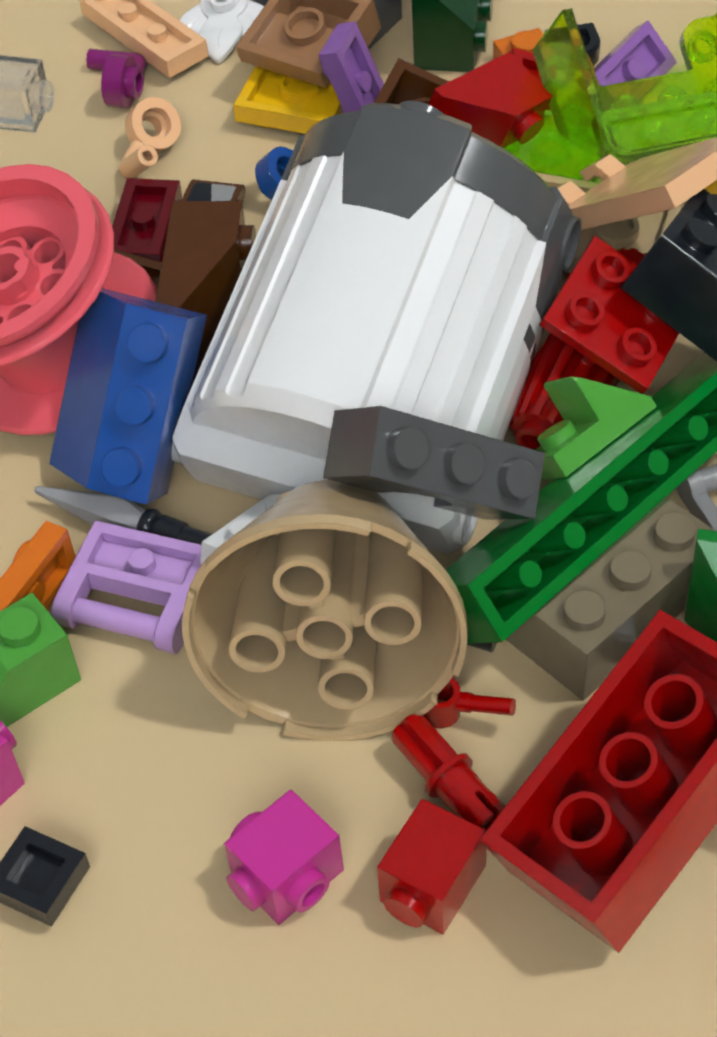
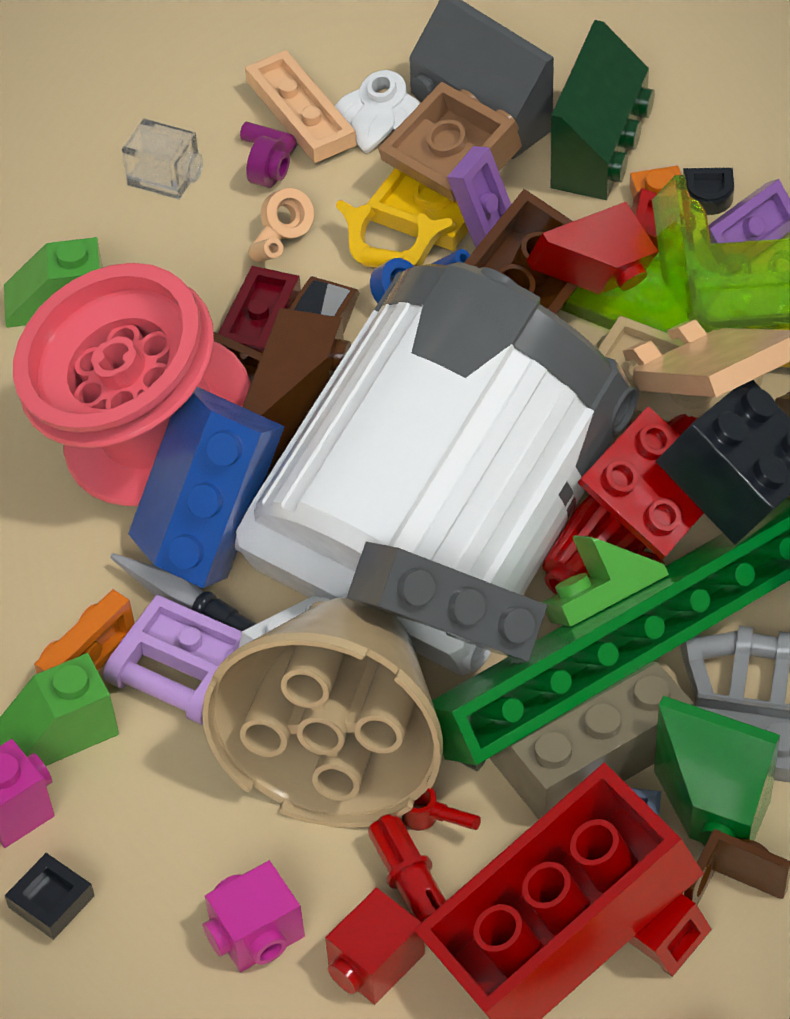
camera: 10 degrees right, 0 degrees up
(248, 155) = (358, 218): none -> yellow helmet

